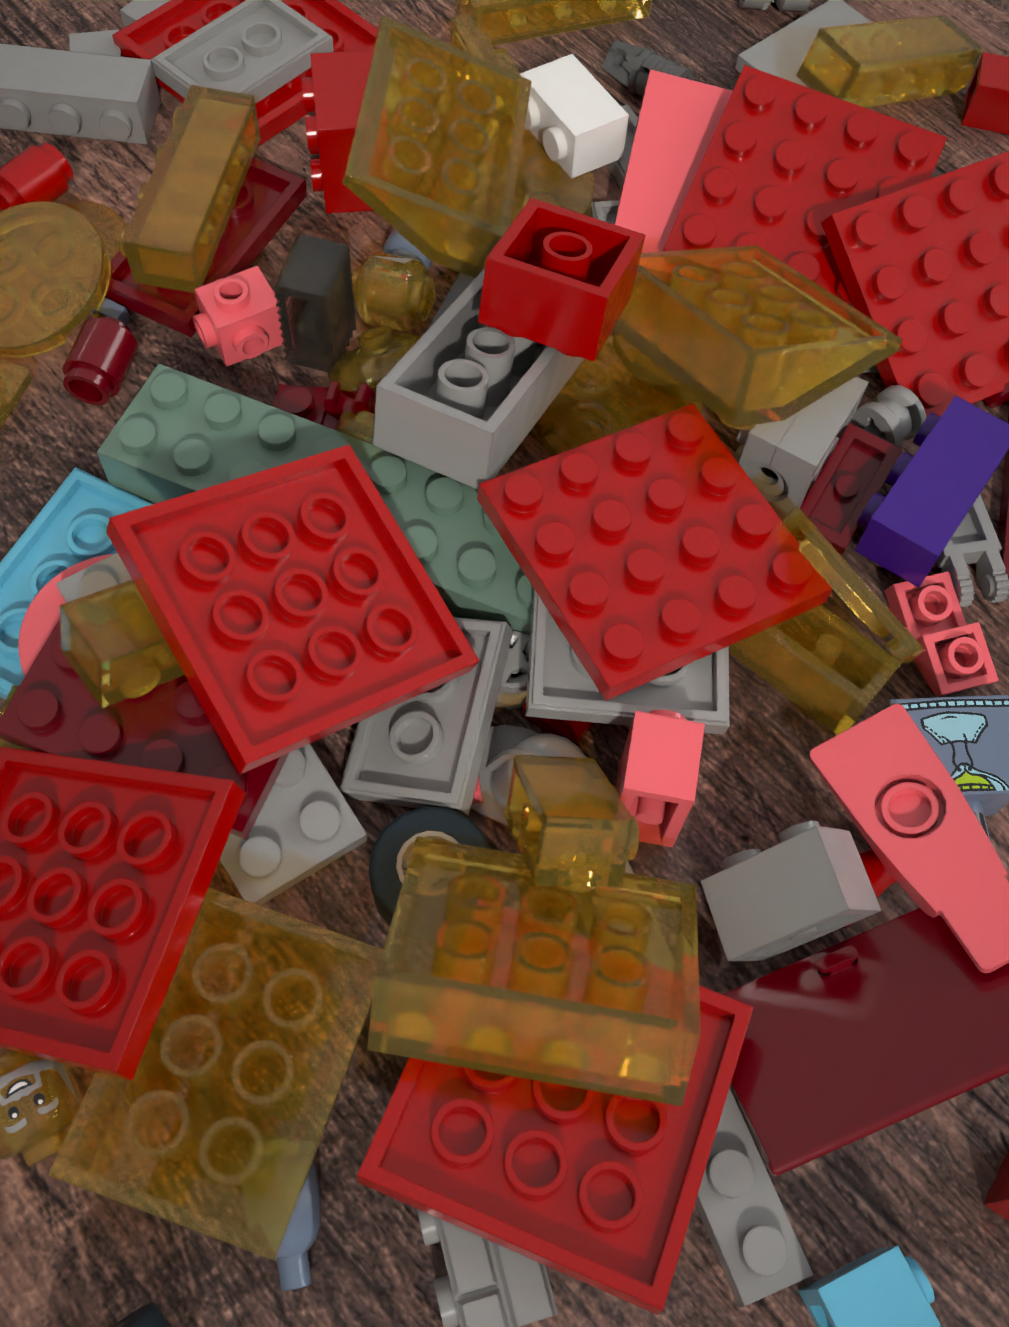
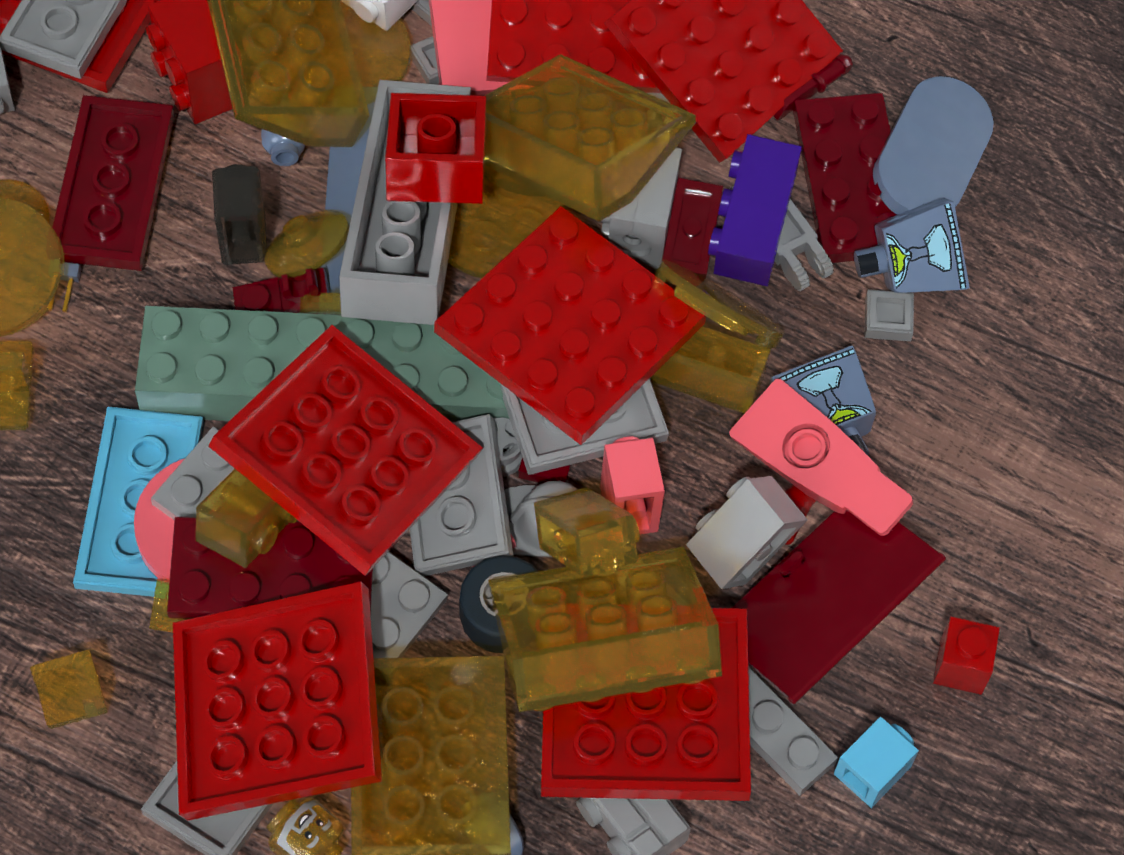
camera: 20 degrees left, 0 degrees up
(99, 360) = (84, 315): dark red brick -> none
(191, 189) = (95, 148): clear yellow brick -> none
(238, 316) = (180, 243): coral brick -> none
(393, 291) = (289, 181): clear yellow head -> none
(893, 417) = (706, 159): light grey wheel -> none
(955, 651) = (805, 323): coral slope -> none

